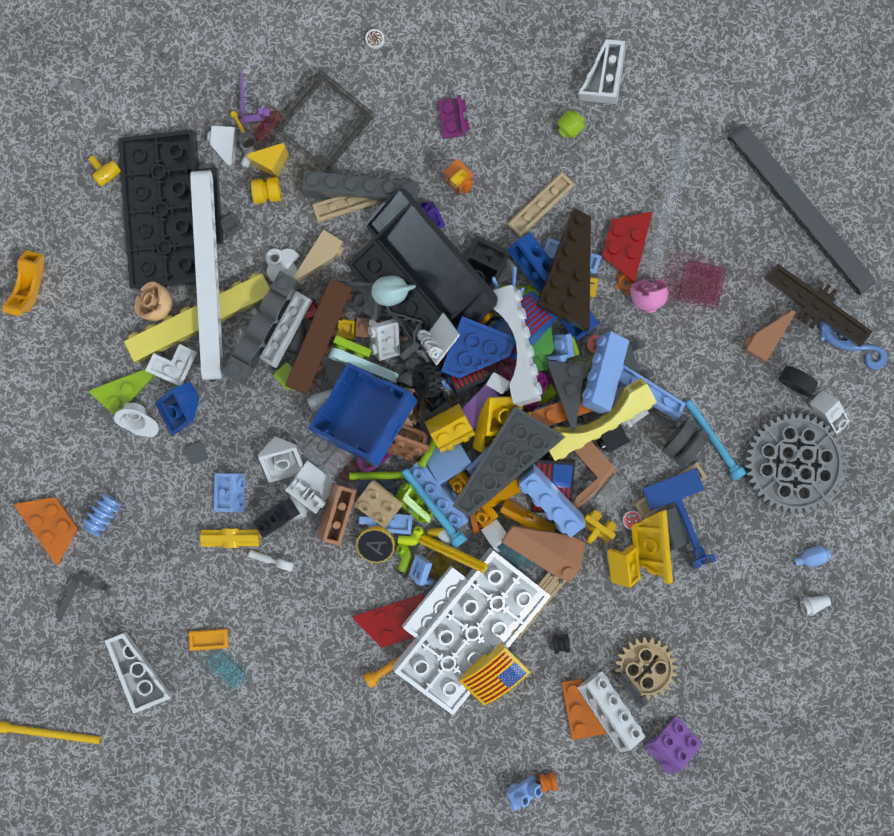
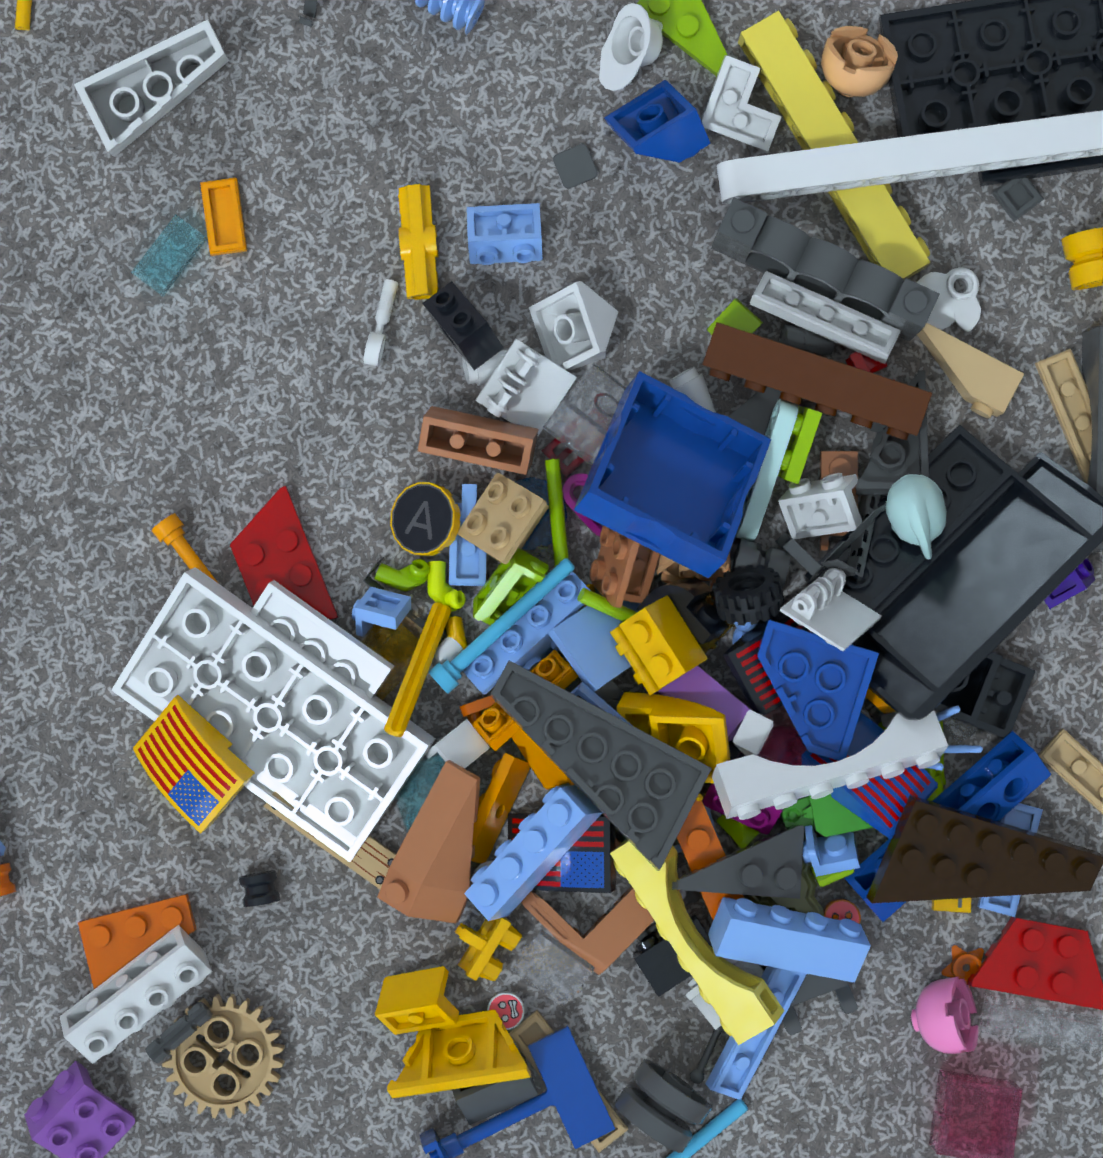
camera: 85 degrees right, 0 degrees up
(344, 327) = (834, 428): yellow slope -> none

